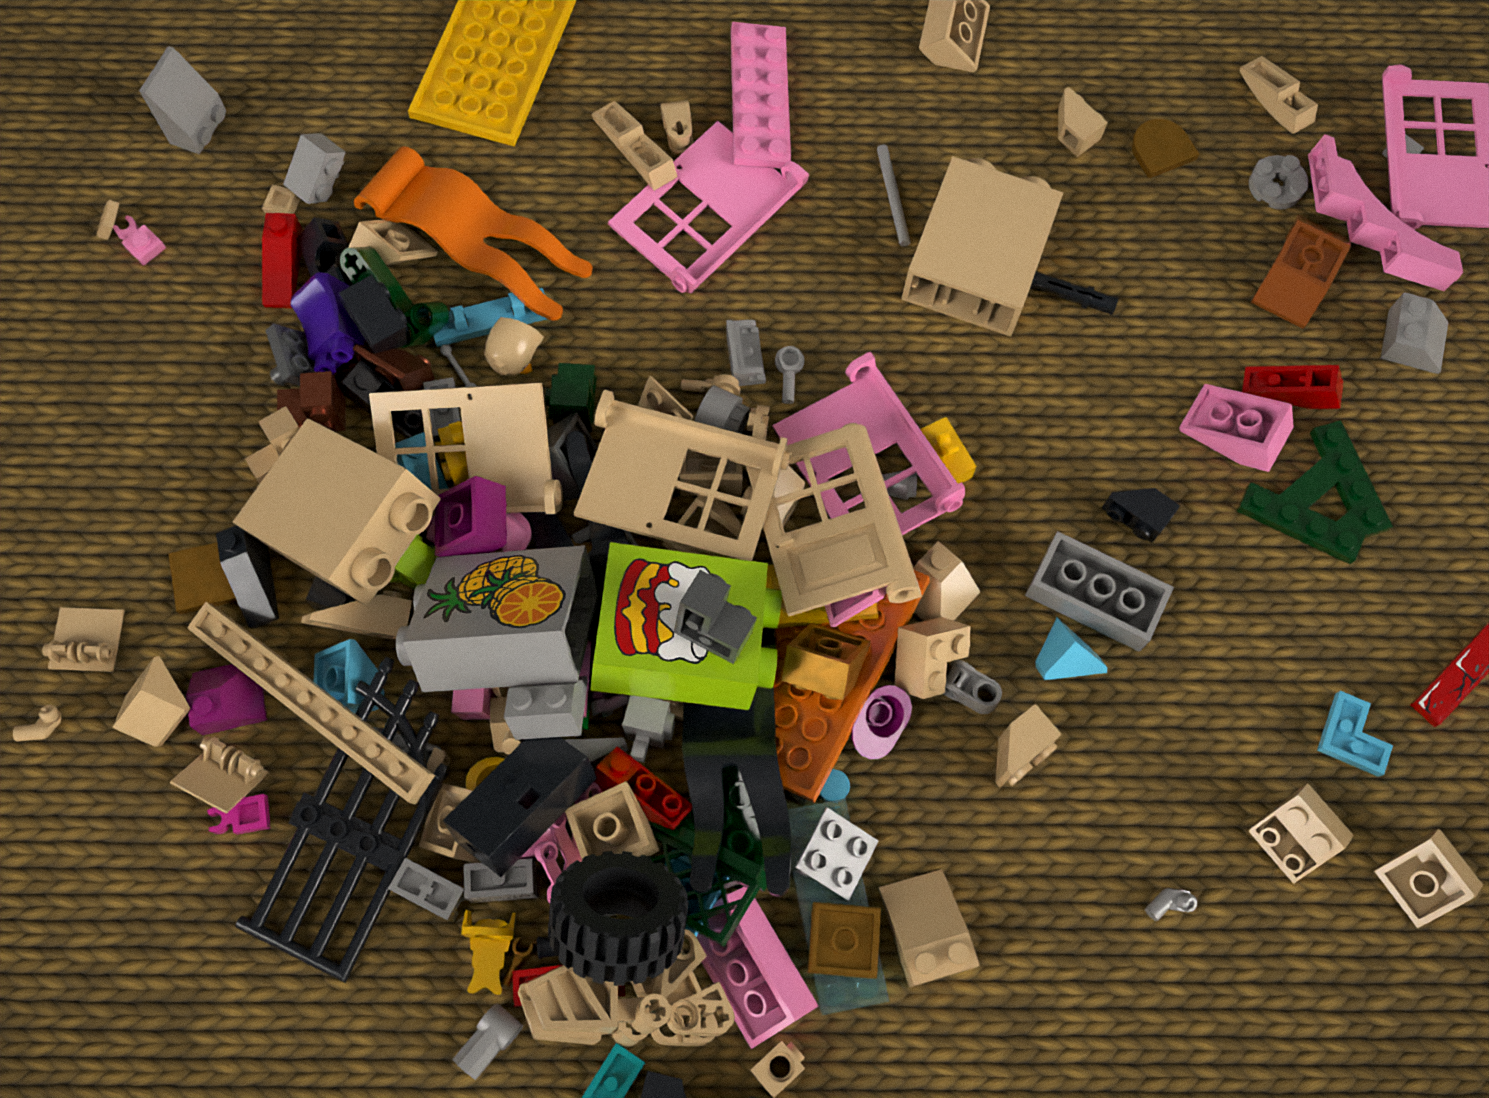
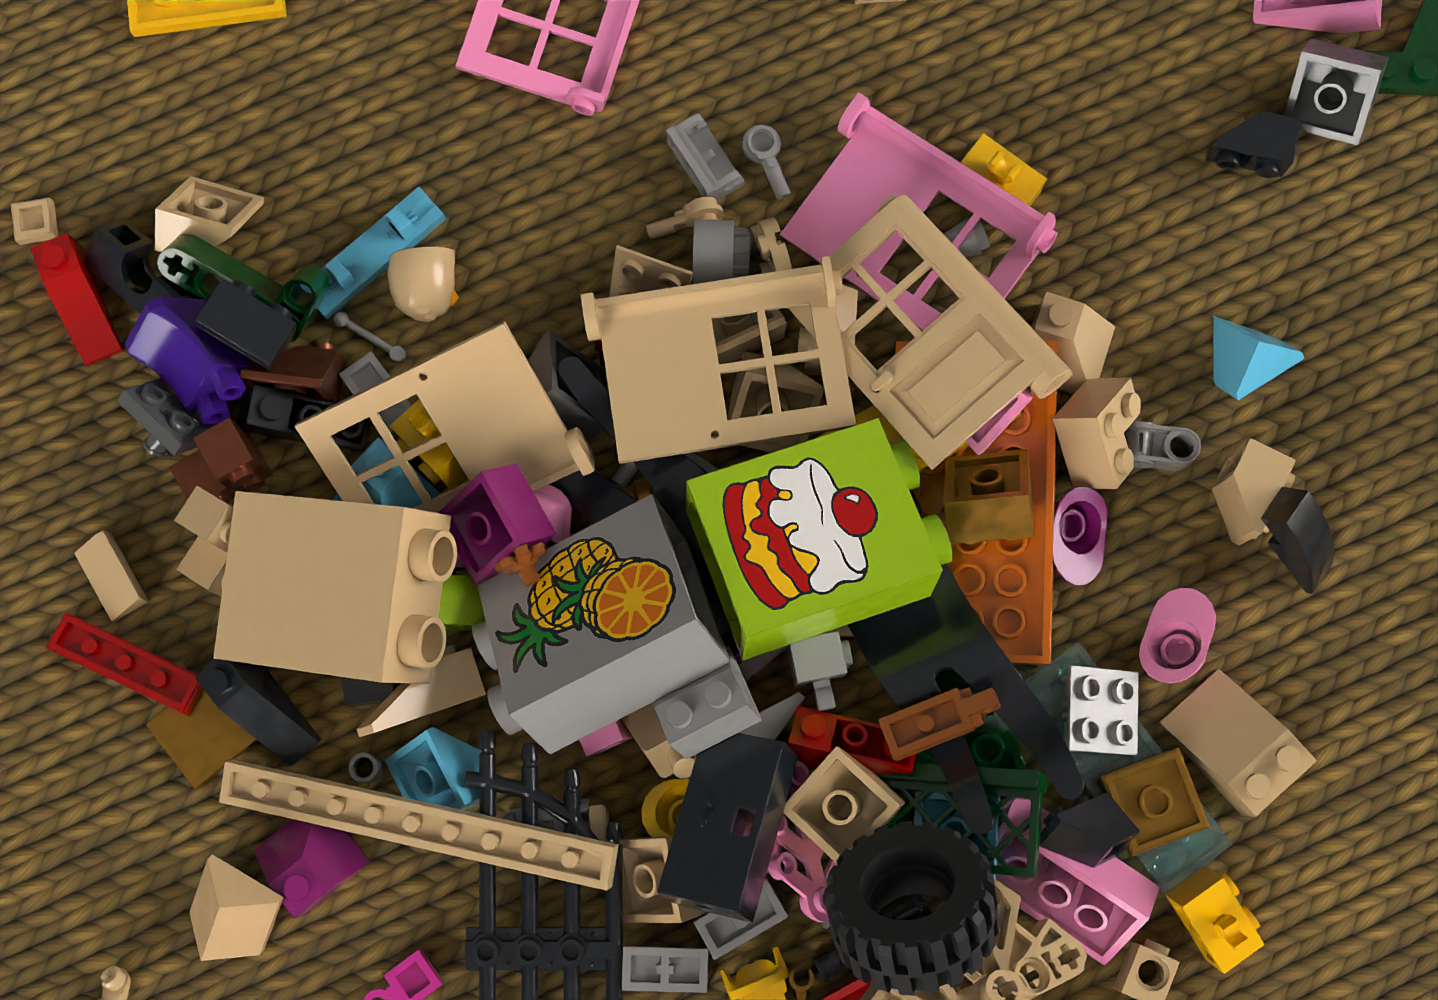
camera: 20 degrees left, 10 degrees up
(85, 639) = (104, 871): tan hinge -> none
(178, 507) = (126, 663): none -> red tile
(202, 446) = (111, 575): none -> tan slope
(220, 775) = (356, 955): tan hinge -> none
(295, 644) = (355, 763): none -> dark grey hinge
(314, 168) = (57, 161): light grey brick -> none
(460, 218) = (271, 144): orange flag -> none
(472, 550) = (523, 563): none -> dark orange plant
(572, 392) = (527, 305): dark green brick -> none
(707, 797) = (936, 720): none -> dark orange hinge
(711, 620) = (861, 522): dark grey brick -> none
(782, 935) = (1089, 830): none -> black slope
(835, 787) = (1063, 632): medium azure tile -> none
(849, 1050) = (1215, 918): none -> yellow brick
(919, 828) = (1177, 635): none -> bright pink piece
(1042, 795) = (1300, 536): none -> black slope
(1099, 591) = (1253, 265): light grey brick -> none
(1215, 498) = (1335, 90): none -> dark grey slope

